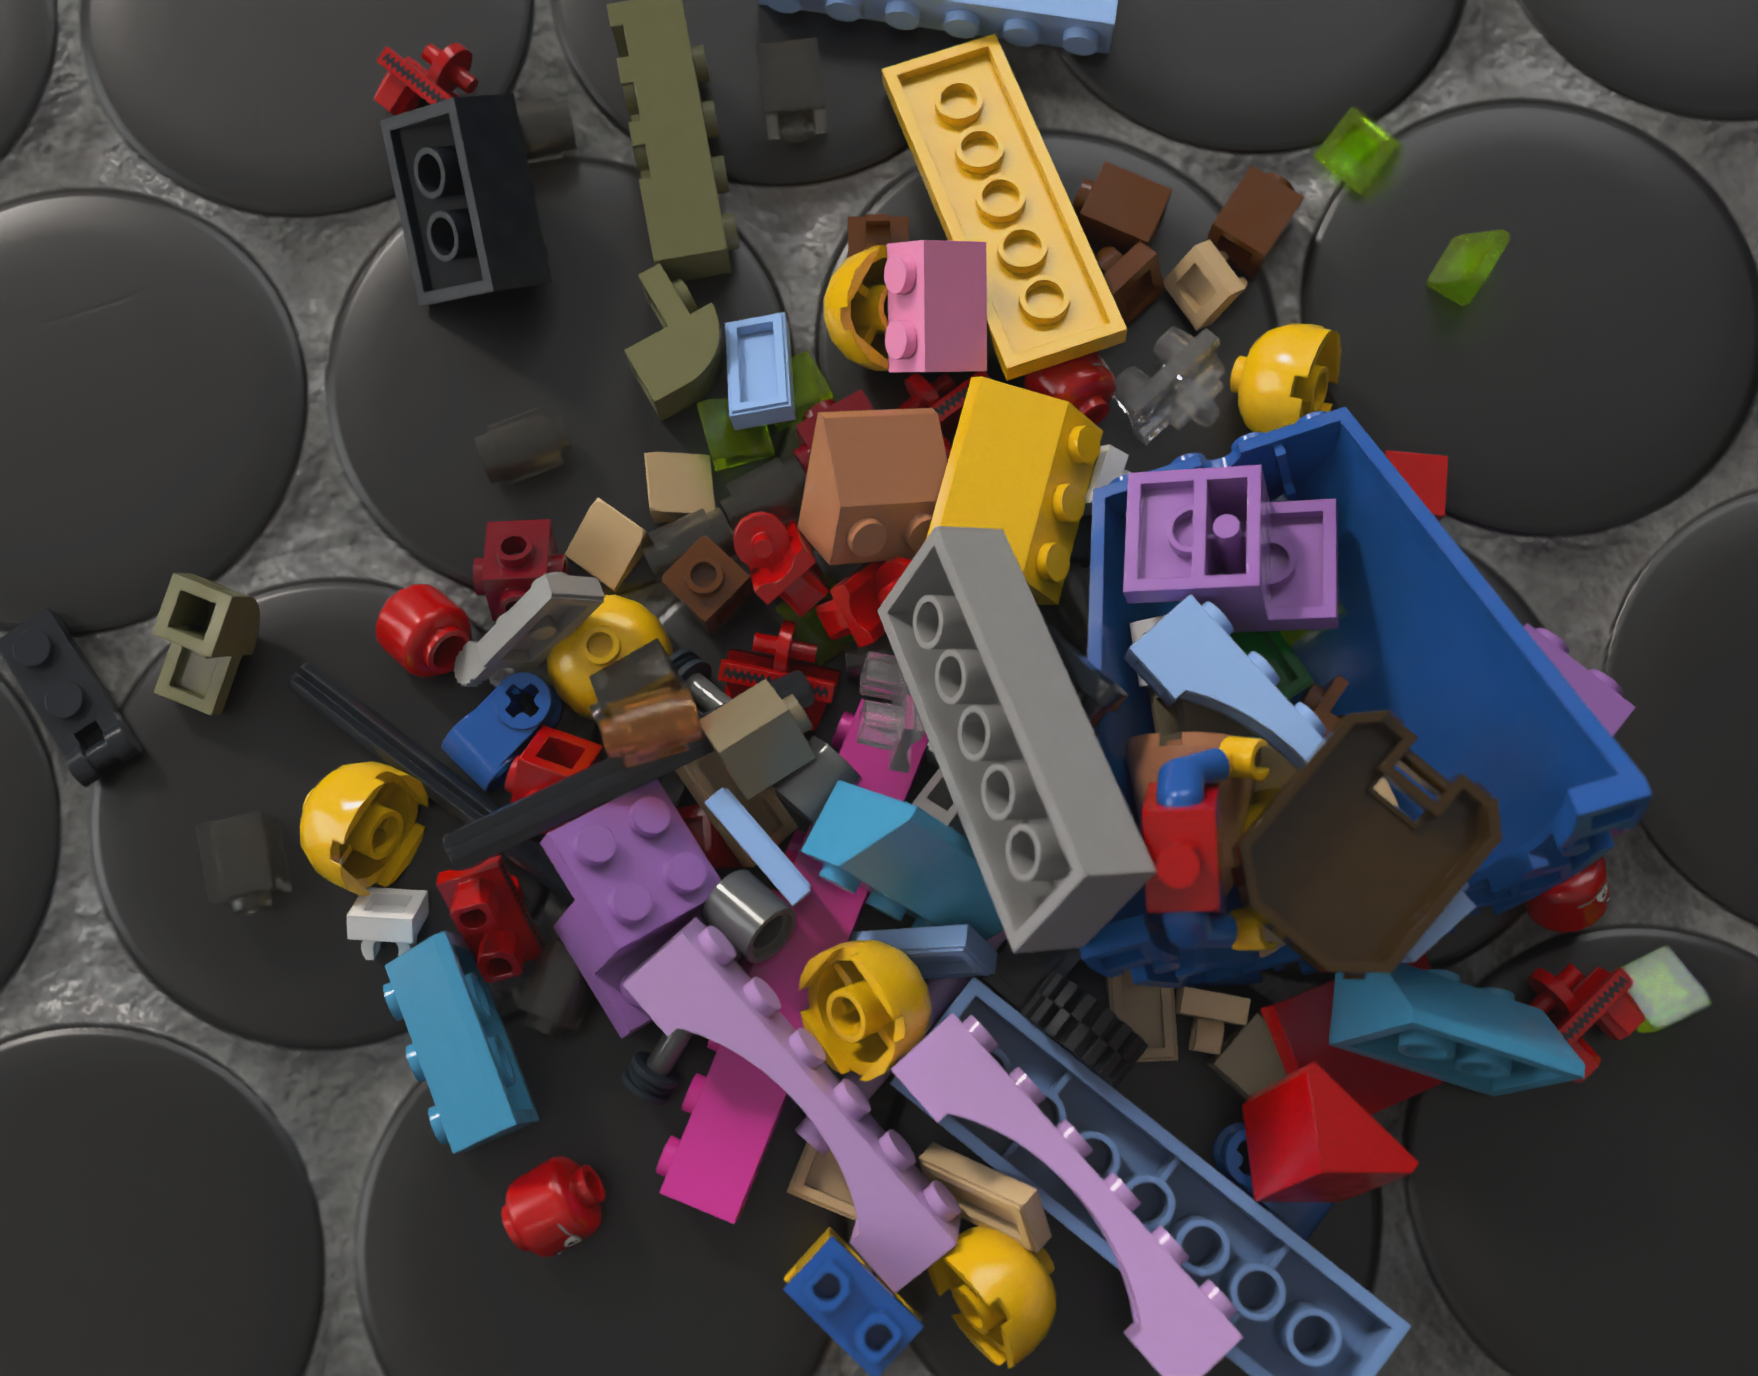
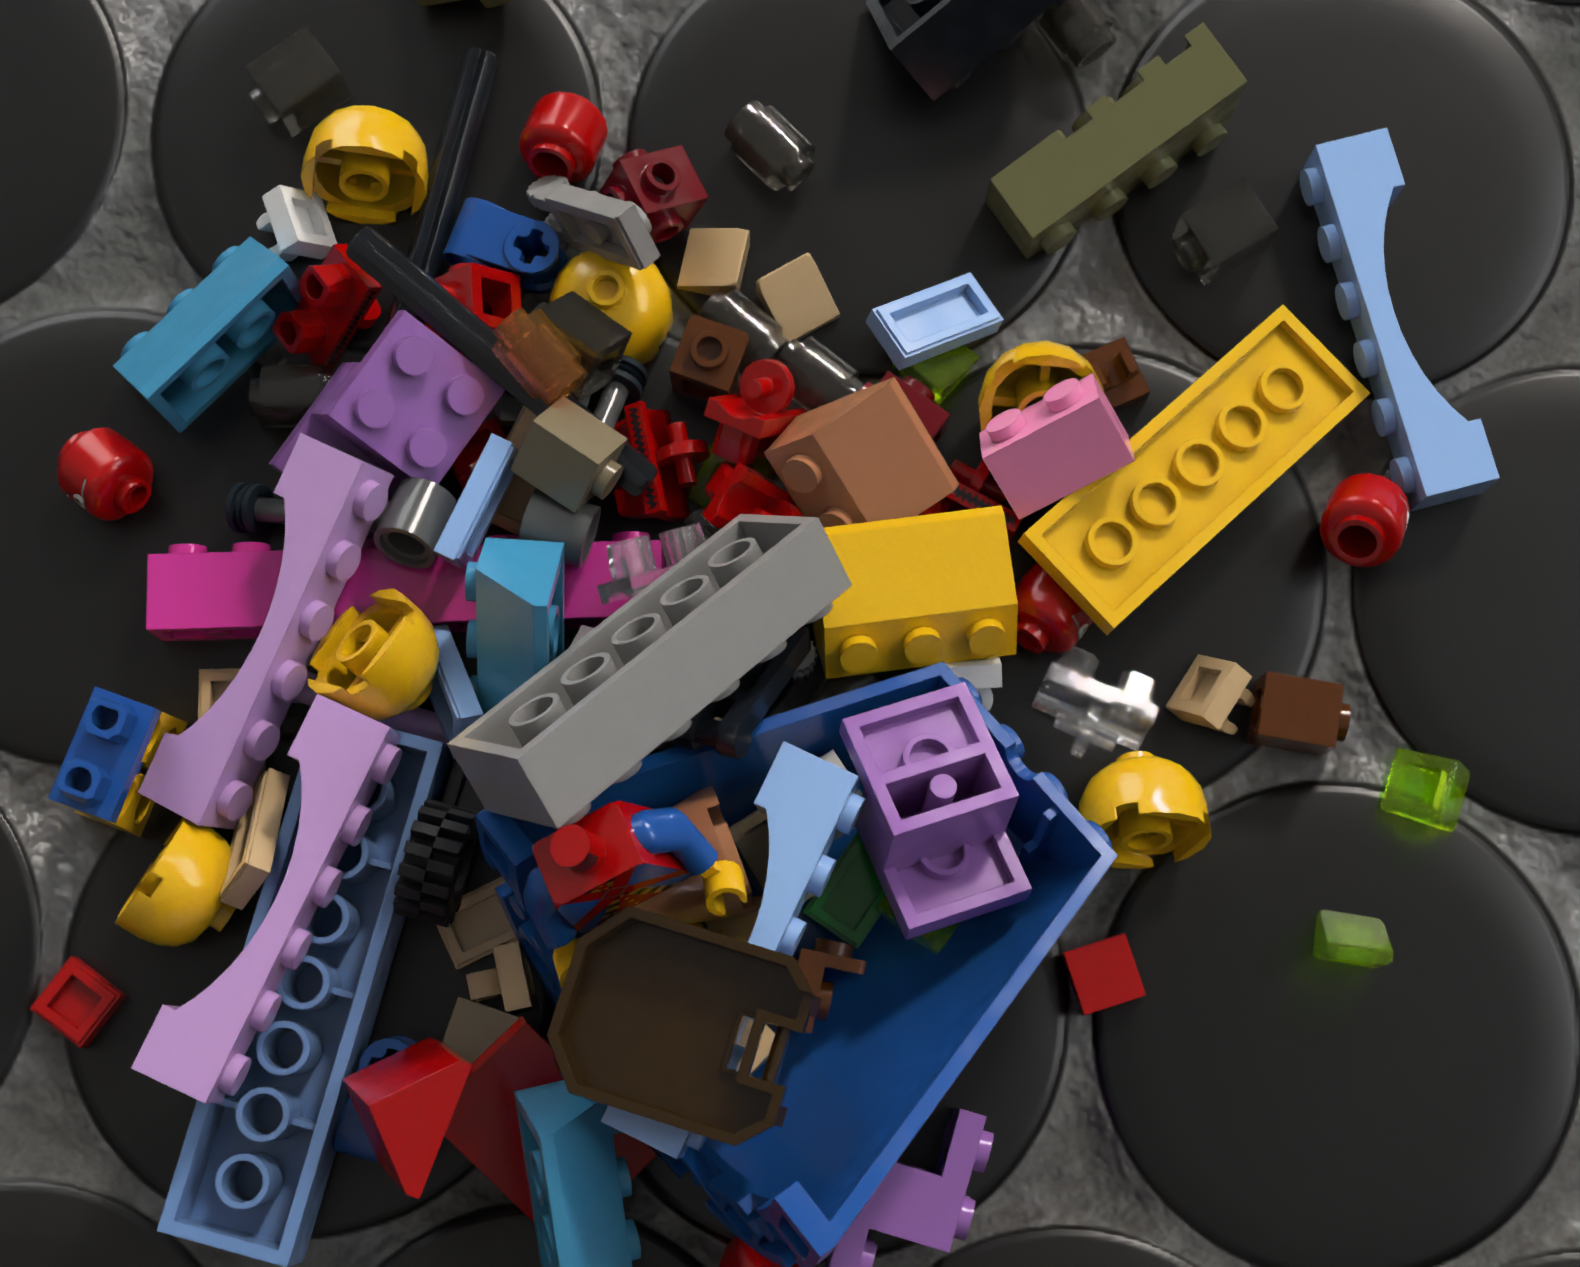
camera: 65 degrees right, 0 degrees up
(682, 358) = (921, 250): olive brick -> none
(732, 446) = (850, 325): clear neon green slope -> none
(1109, 86) = (1365, 520): none -> red head
(1120, 208) = (1245, 584): reddish brown brick -> none
(1132, 278) = (1178, 619): reddish brown tile -> none

